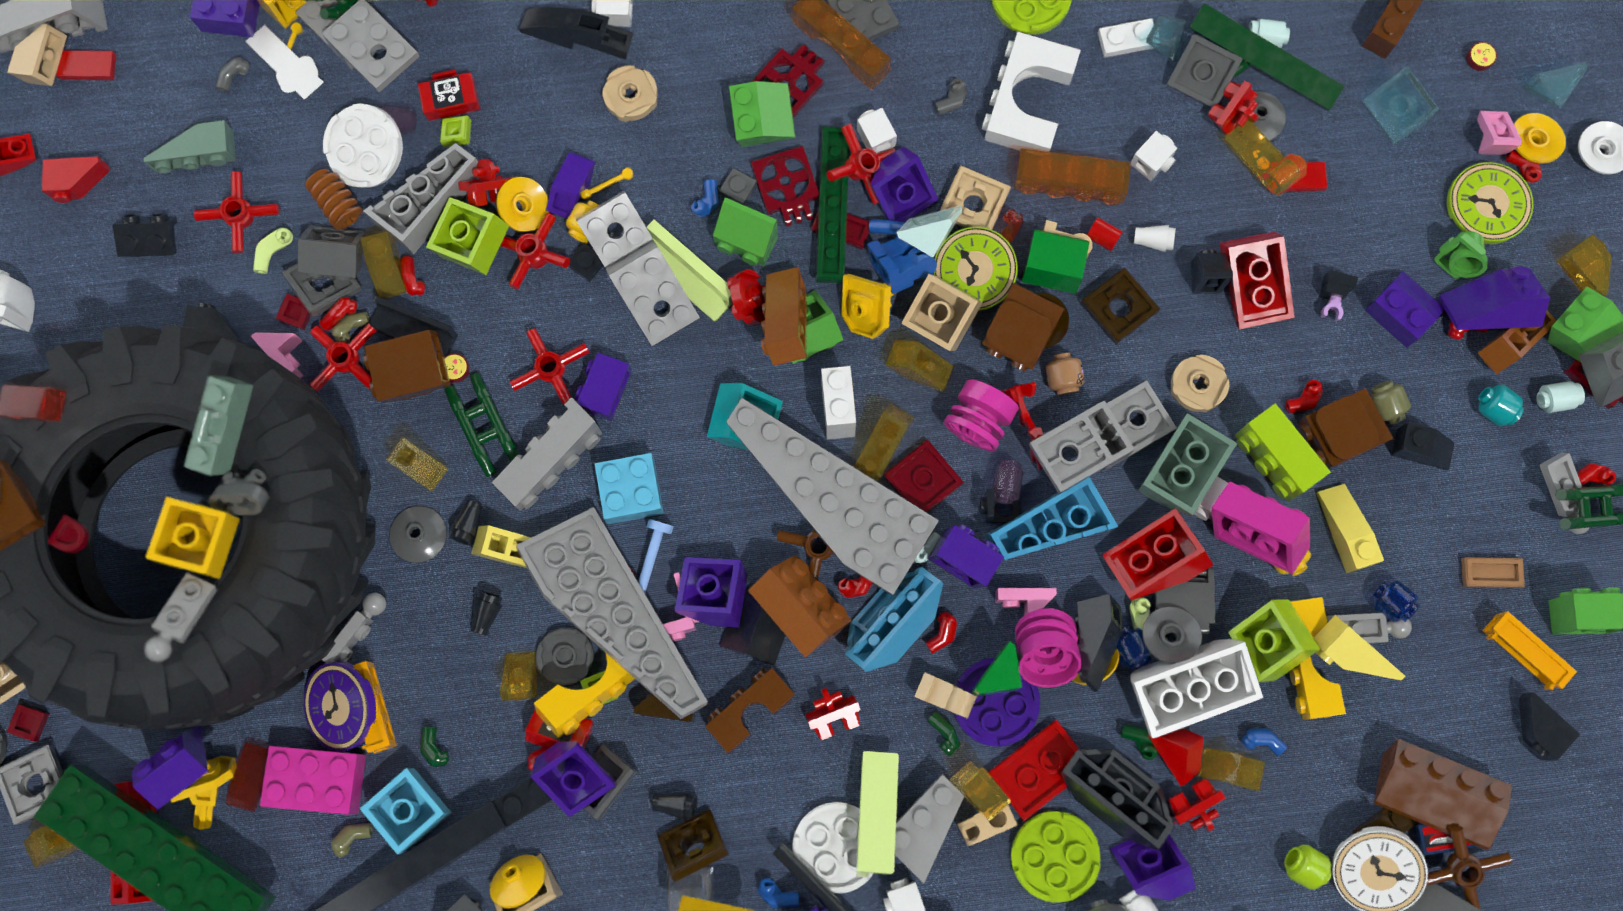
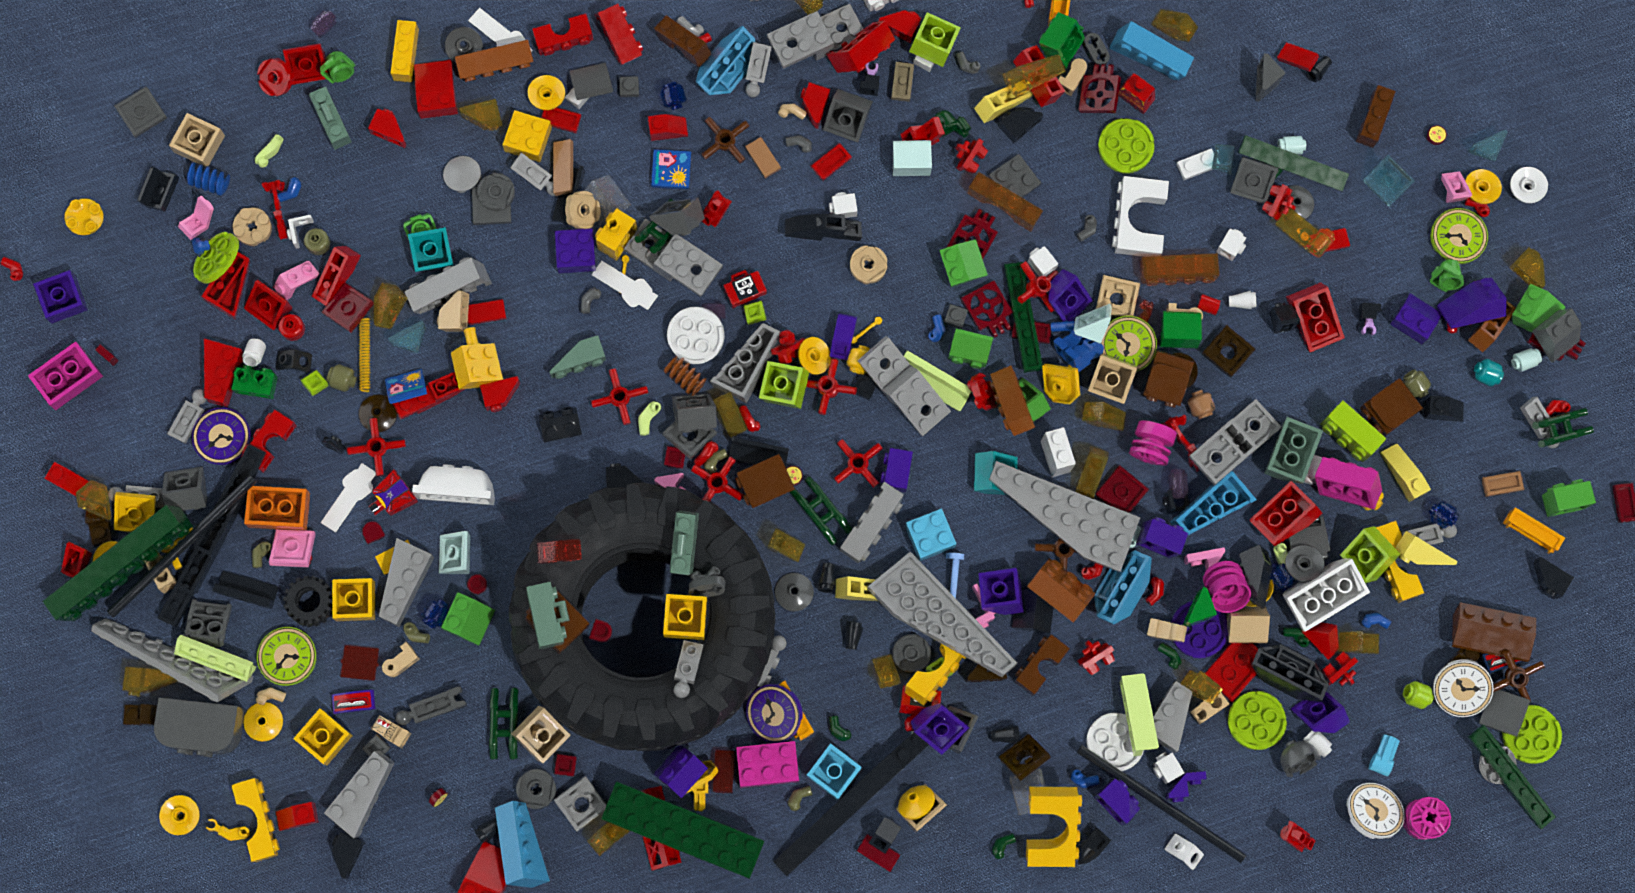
camera: 20 degrees left, 0 degrees up
(43, 126) = (475, 362): none -> yellow brick
(1070, 711) = (1248, 625): none -> tan slope
(1214, 378) = (1299, 388): tan plate -> none
(1308, 398) = (1363, 391): red arm -> none

